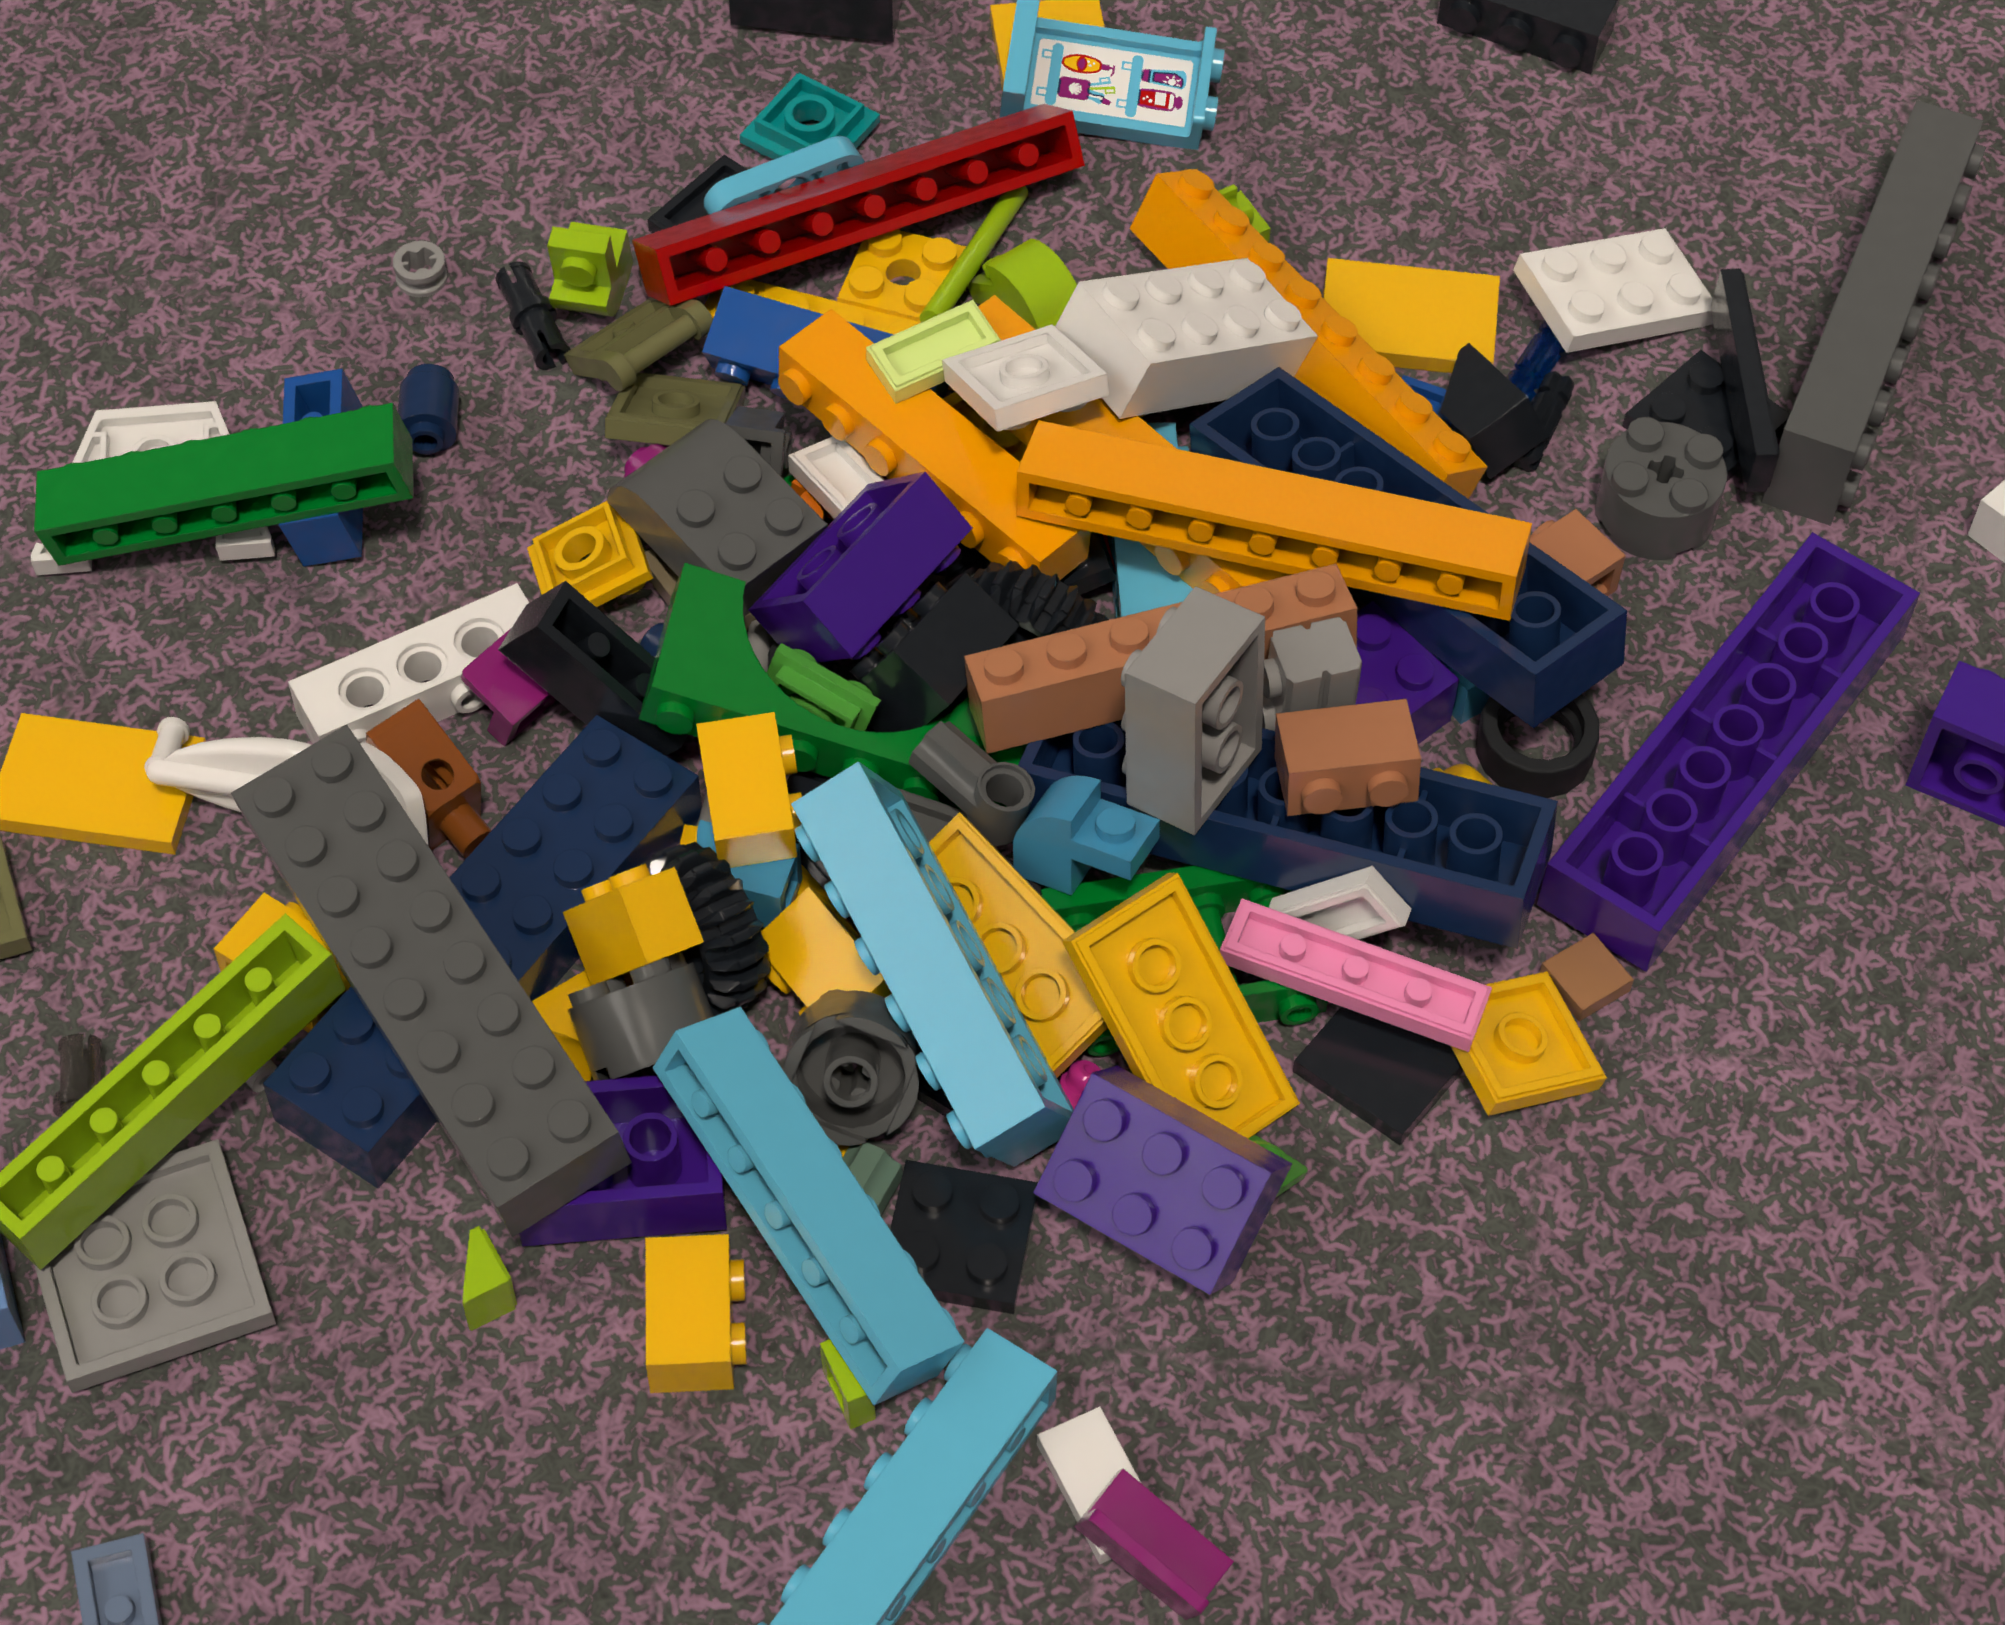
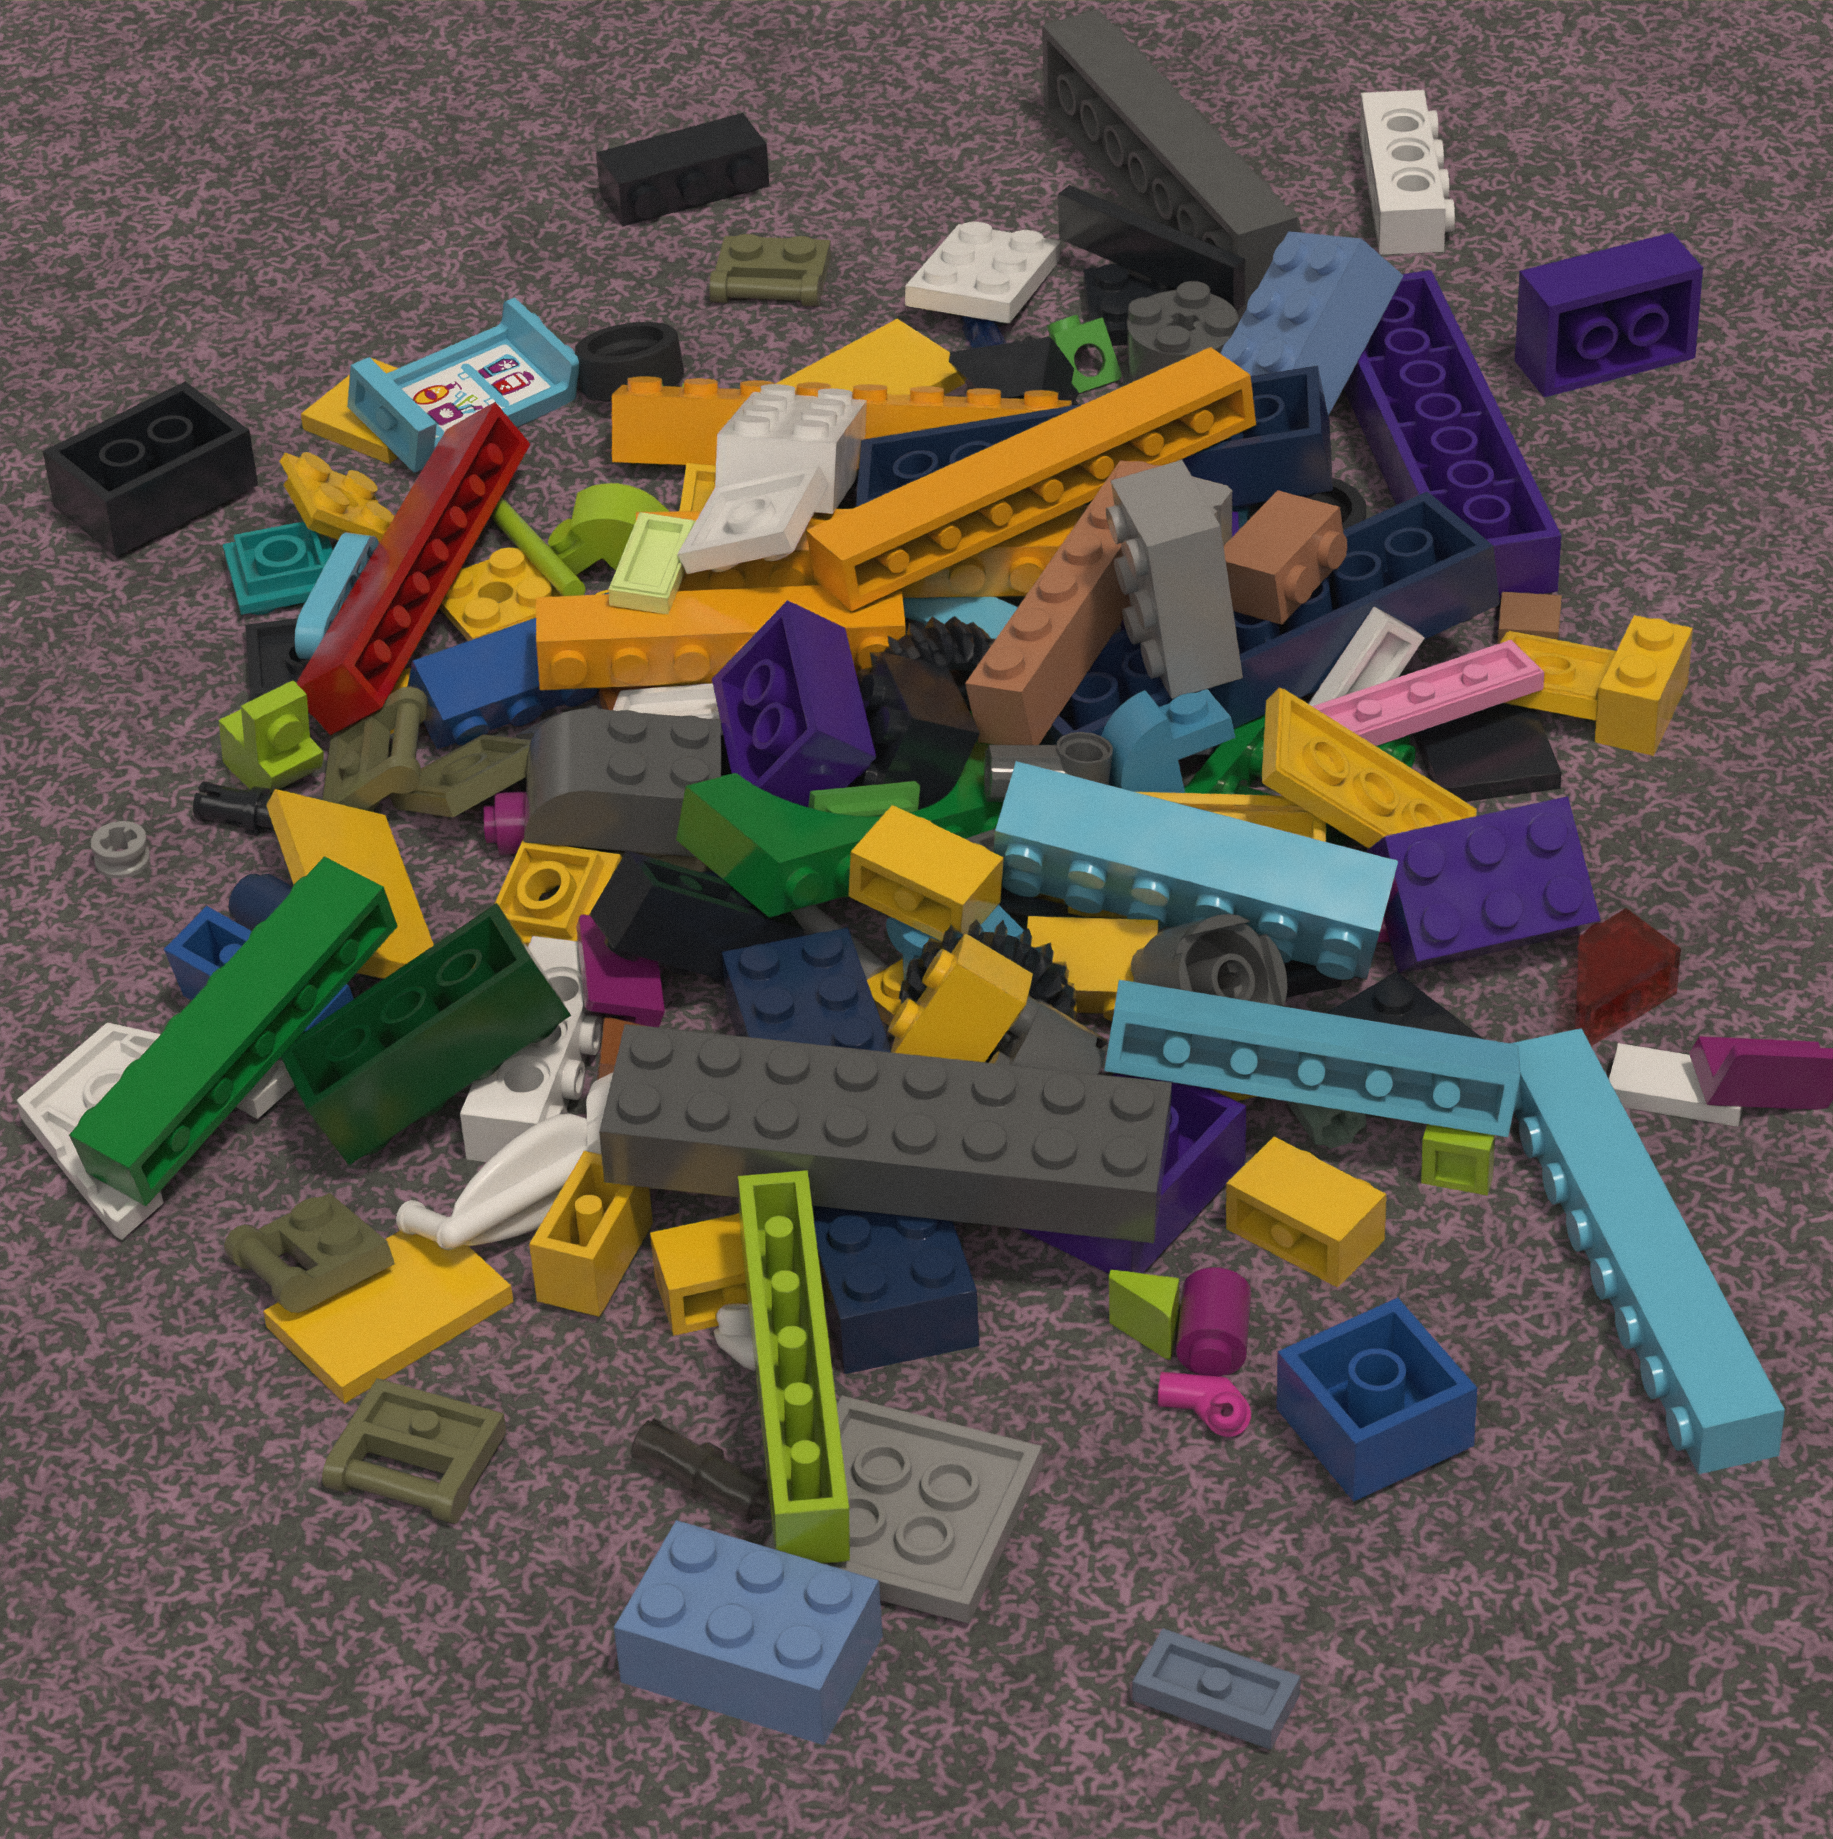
camera: 45 degrees left, 15 degrees down
(108, 710) = (324, 1239): none -> olive plate
(222, 863) = (588, 1238): none -> yellow brick
(327, 599) = (423, 1035): none -> dark green brick
(440, 1389) = (1210, 1397): none -> dark pink arm
(490, 434) = (364, 844): none -> yellow tile
(500, 1513) = (1376, 1399): none -> blue brick
(508, 1337) = (1214, 1322): none -> magenta brick
(895, 75) = (333, 501): none -> yellow piece
(1170, 1349) = (1622, 974): none -> clear red slope
(1253, 129) = (626, 352): none -> black tyre
(1487, 144) = (771, 269): none -> olive plate
(1565, 1121) = (1643, 685): none -> yellow brick
(1594, 403) = (1071, 334): none -> bright green bracket
(1733, 558) = (1314, 309): none -> medium blue brick

